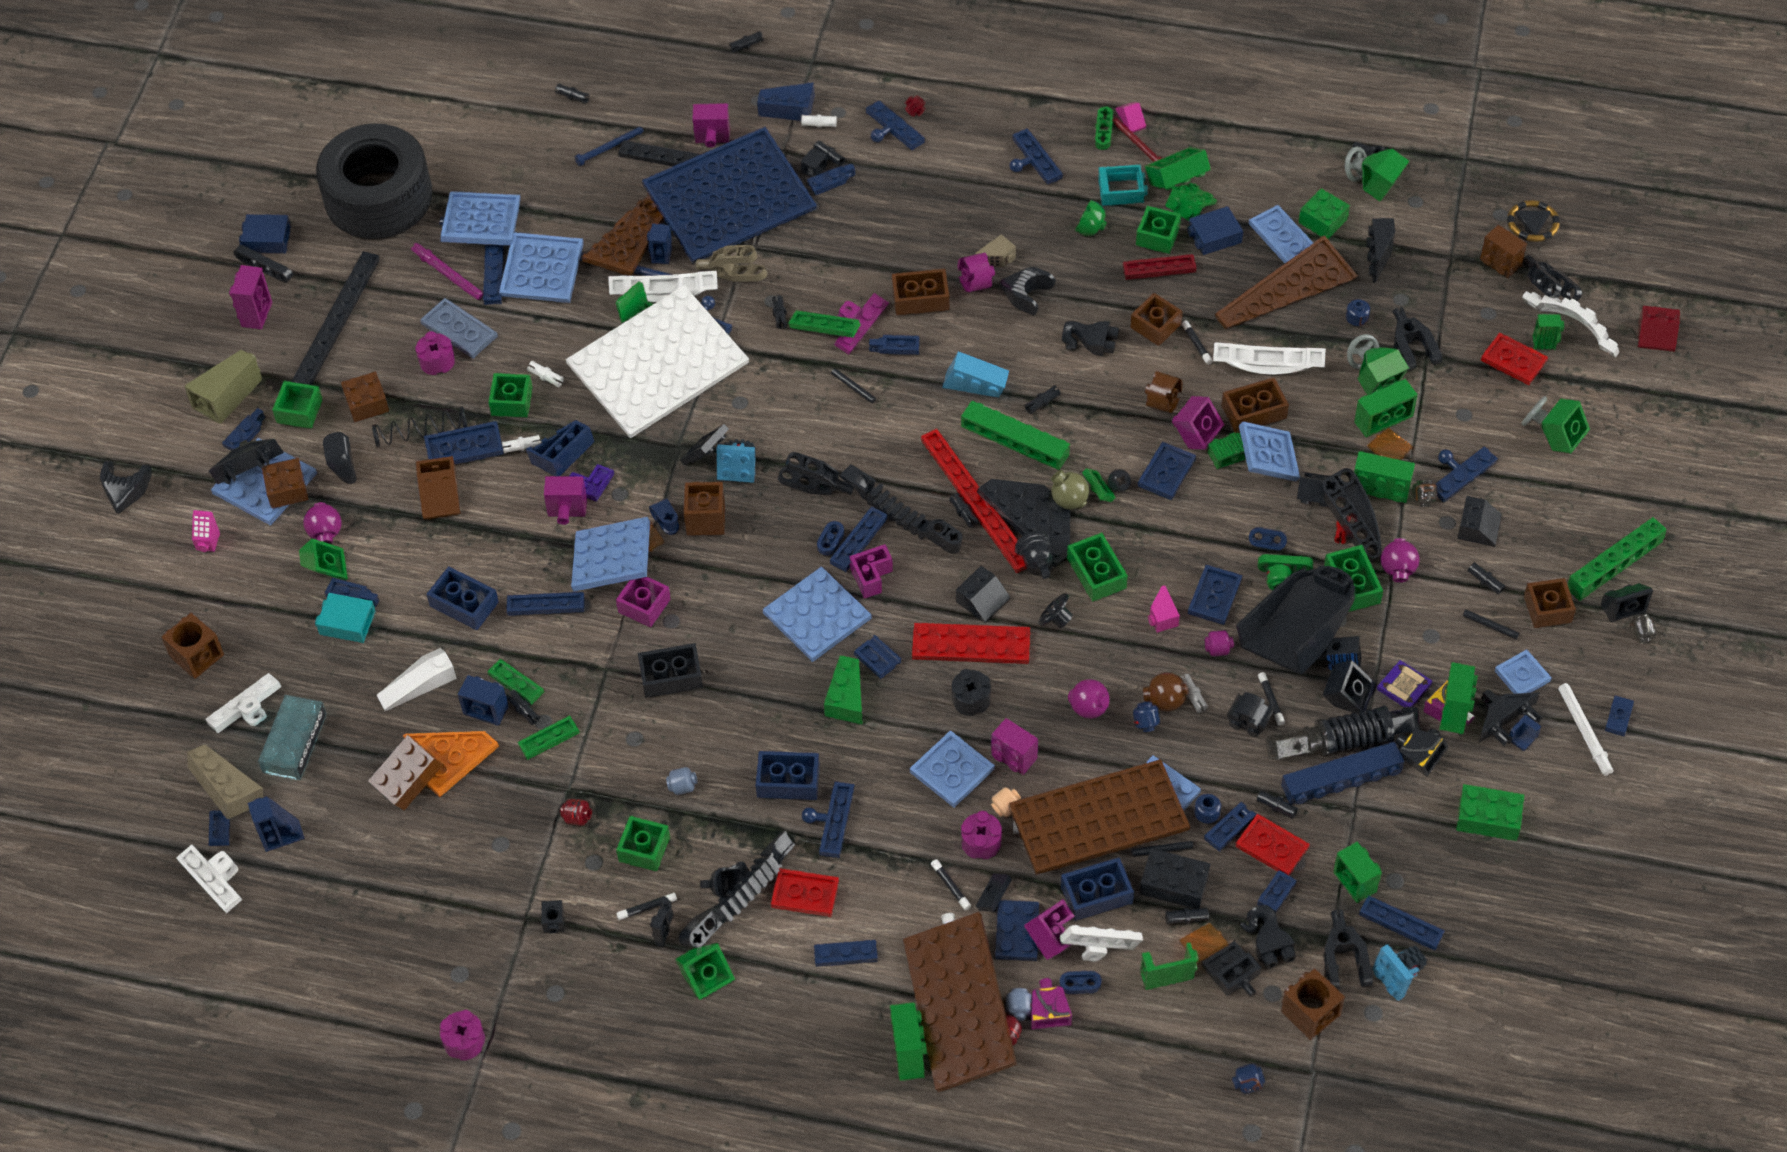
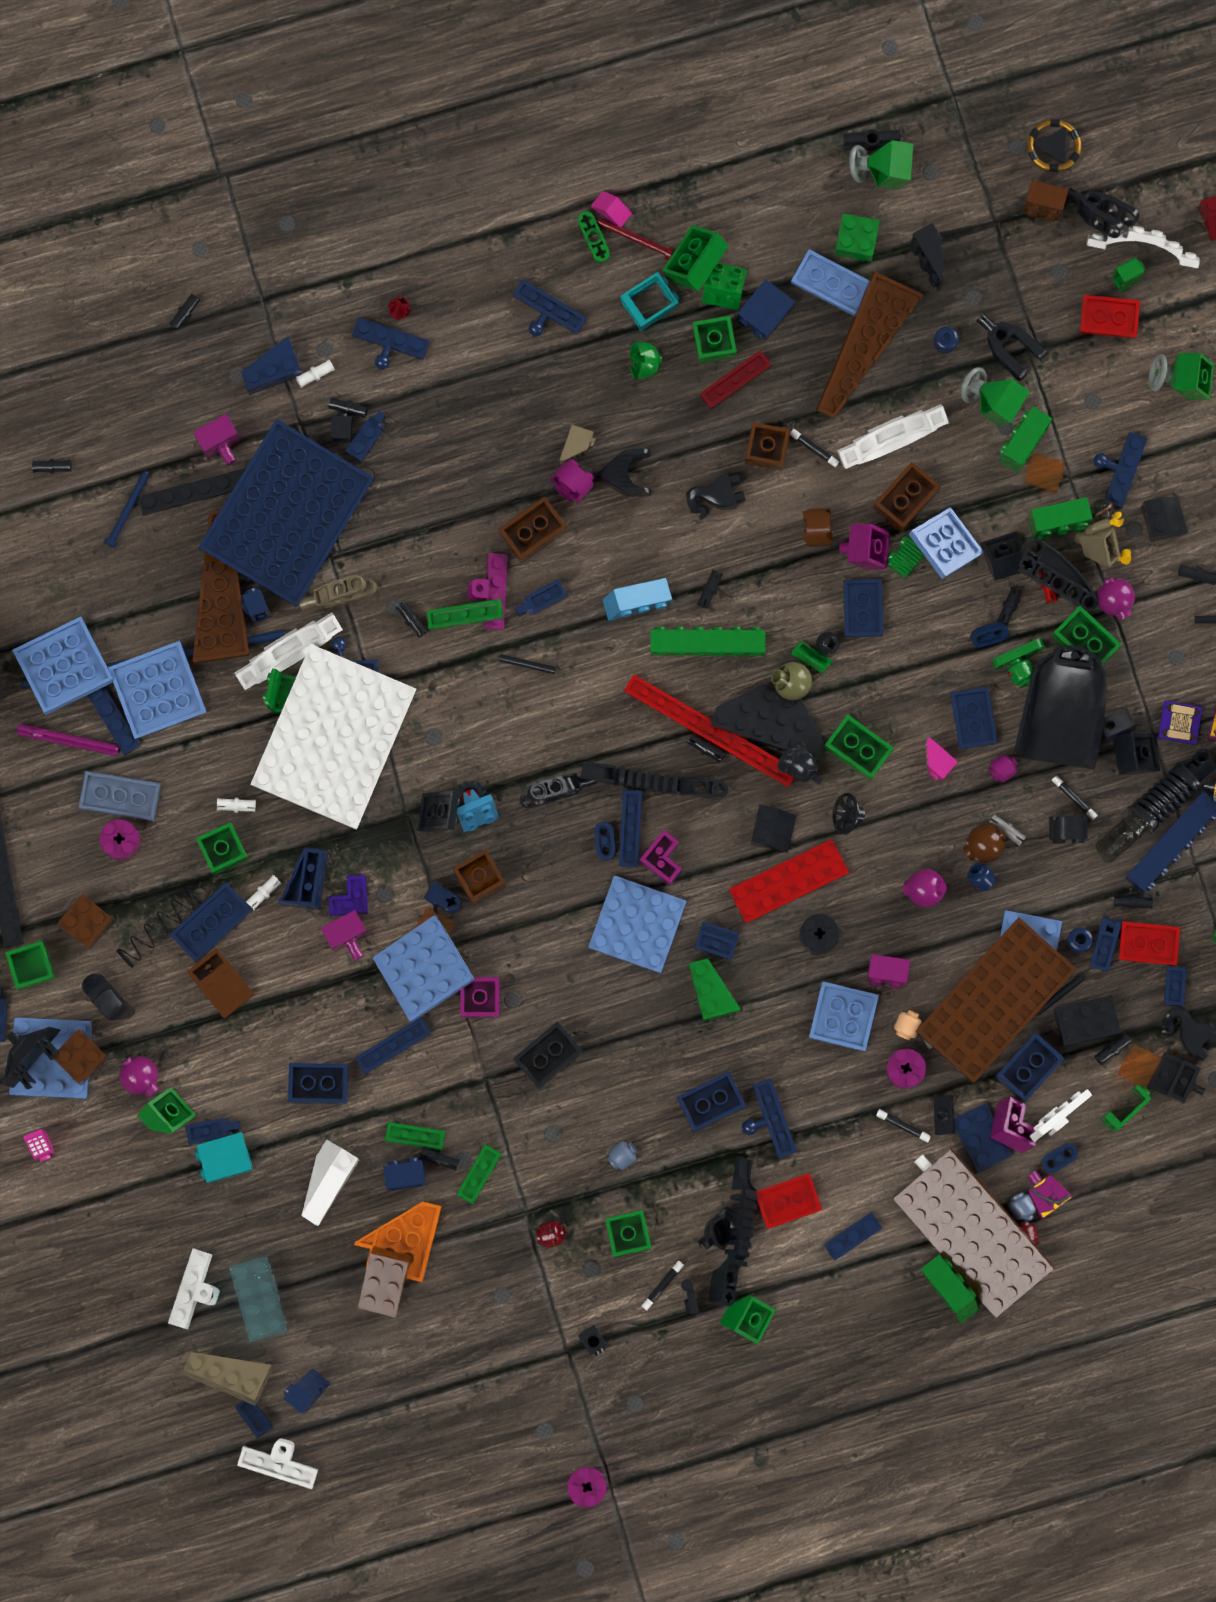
camera: 30 degrees left, 25 degrees up
(197, 657) = (120, 1277): reddish brown brick -> none
(1300, 525) = (1009, 605): none -> black pin
(1408, 510) = (1101, 544): none -> dark tan torso

